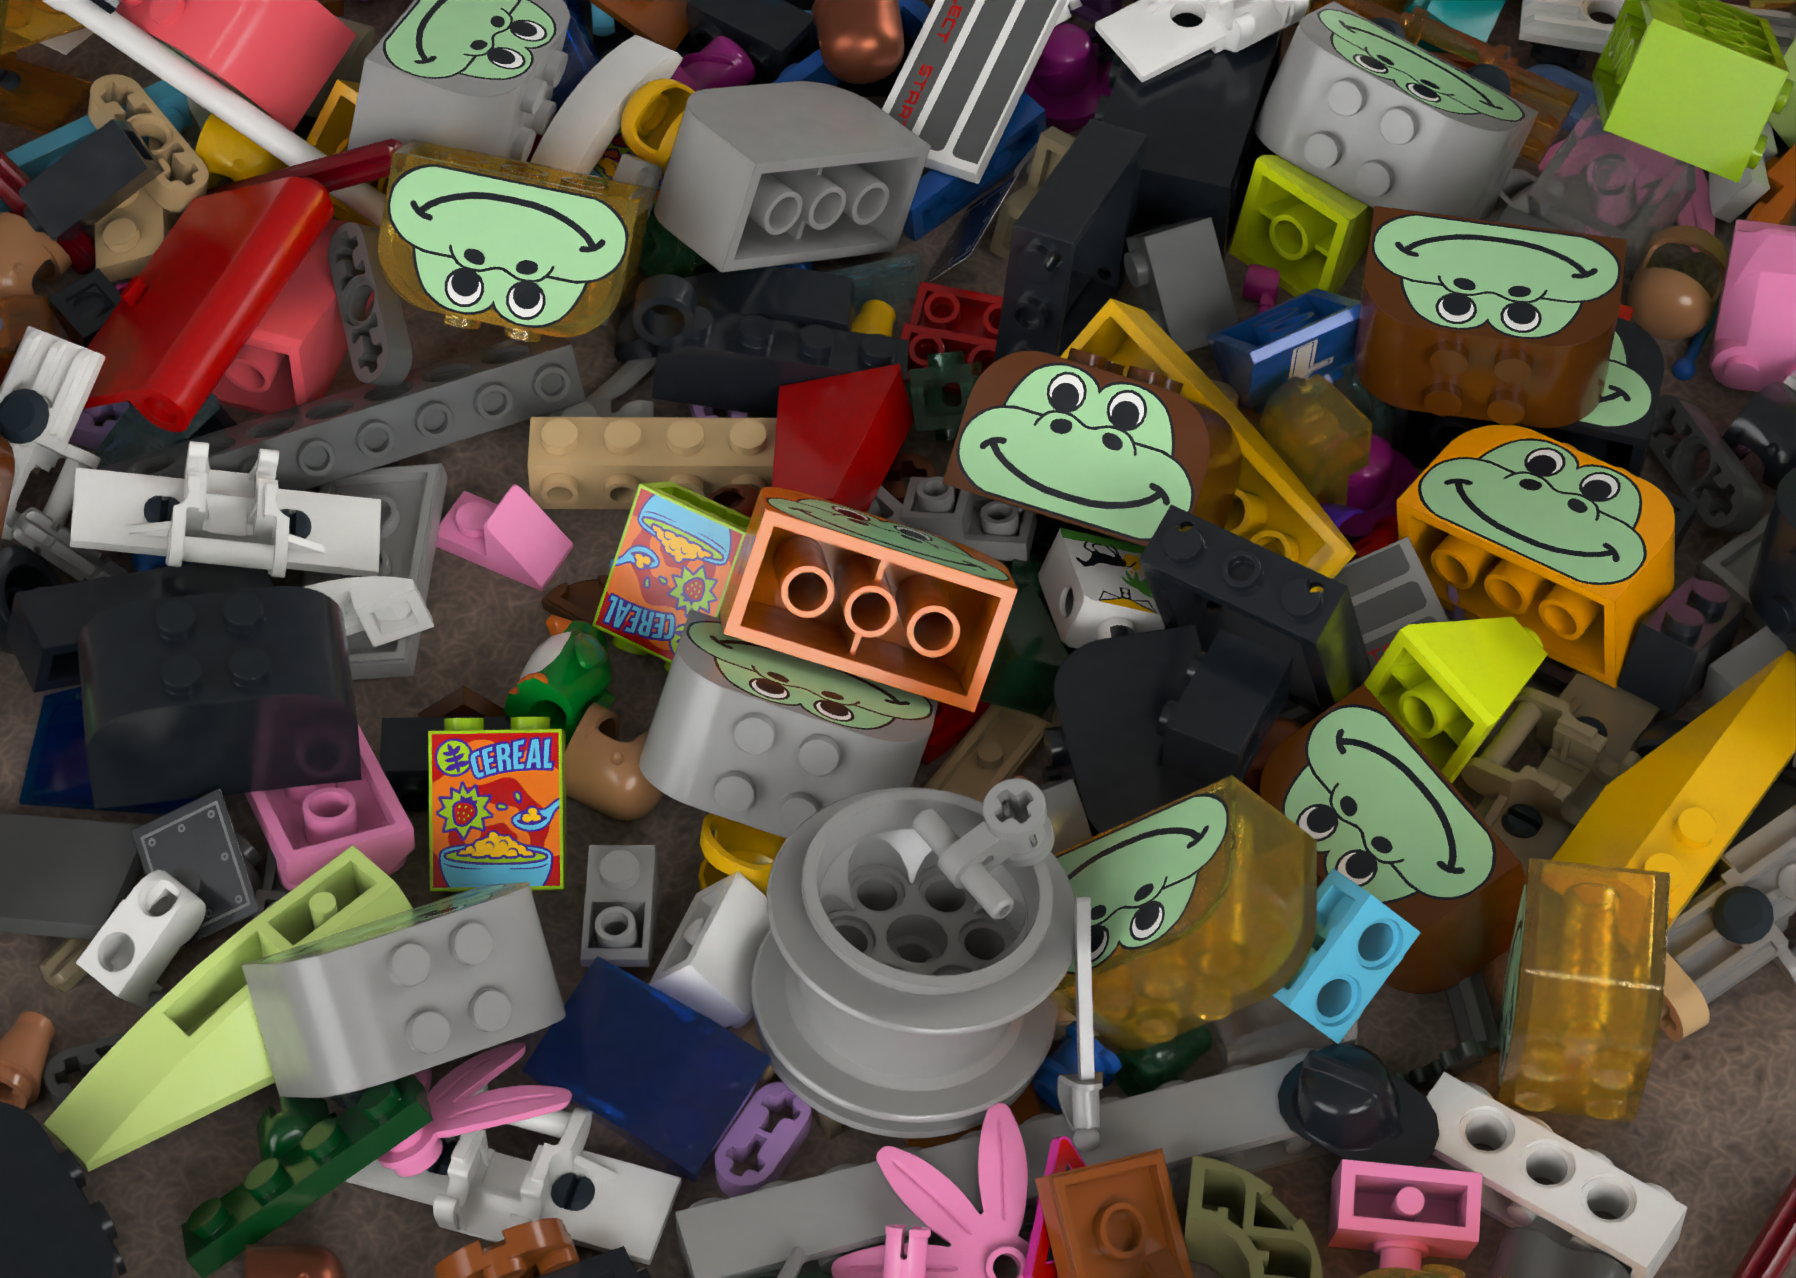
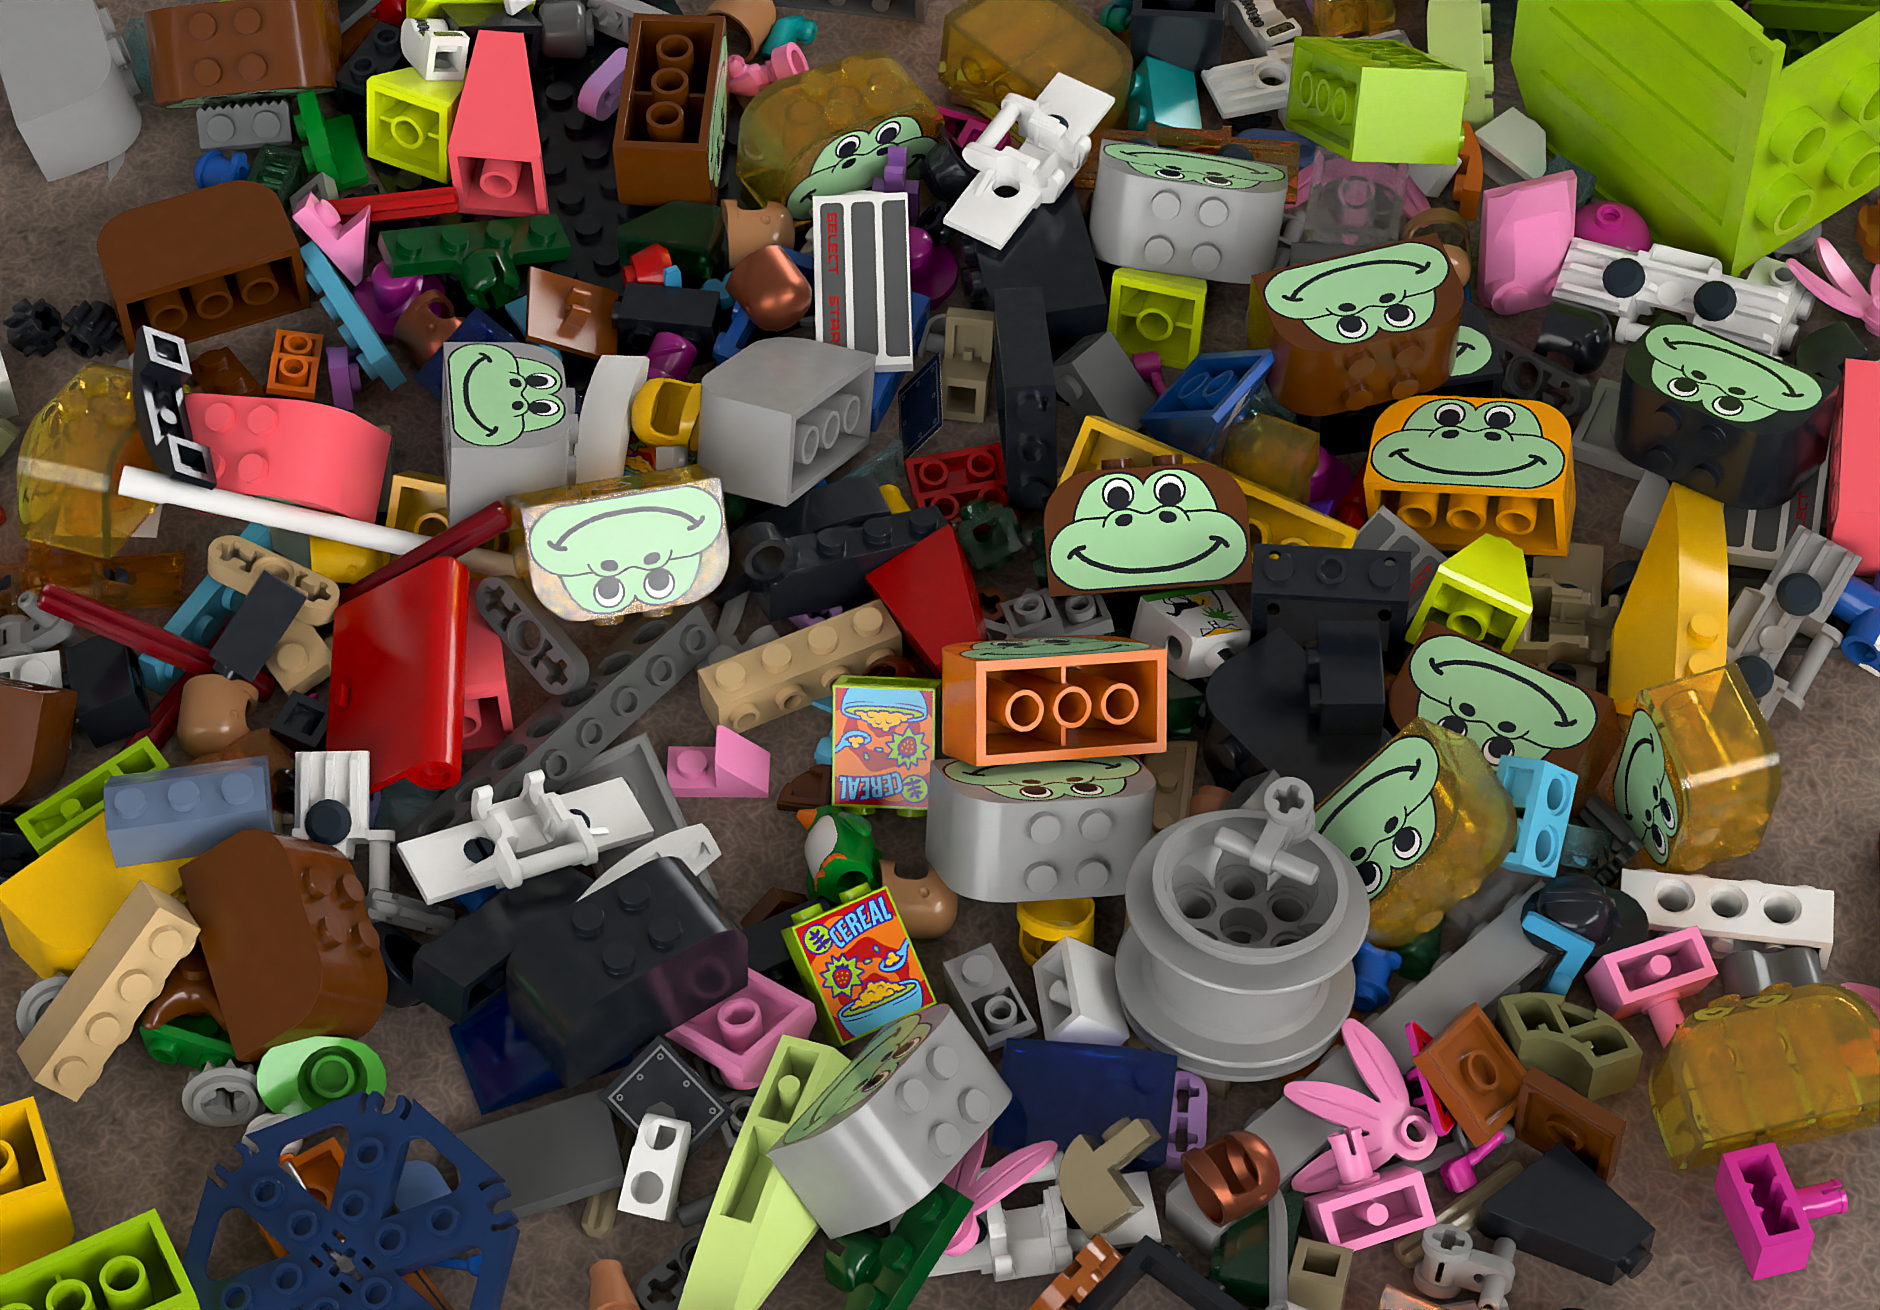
camera: 25 degrees left, 0 degrees up
(592, 1153) = (1091, 1176): none -> dark tan brick
(747, 1219) = (1231, 1176): none -> copper helmet
(1080, 1091) = (1398, 990): light grey sword -> none
(1309, 1154) = (1576, 946): none -> dark azure piece
(1411, 1022) = (1585, 847): none -> clear light blue slope
(1680, 643) = (1598, 507): black brick -> none

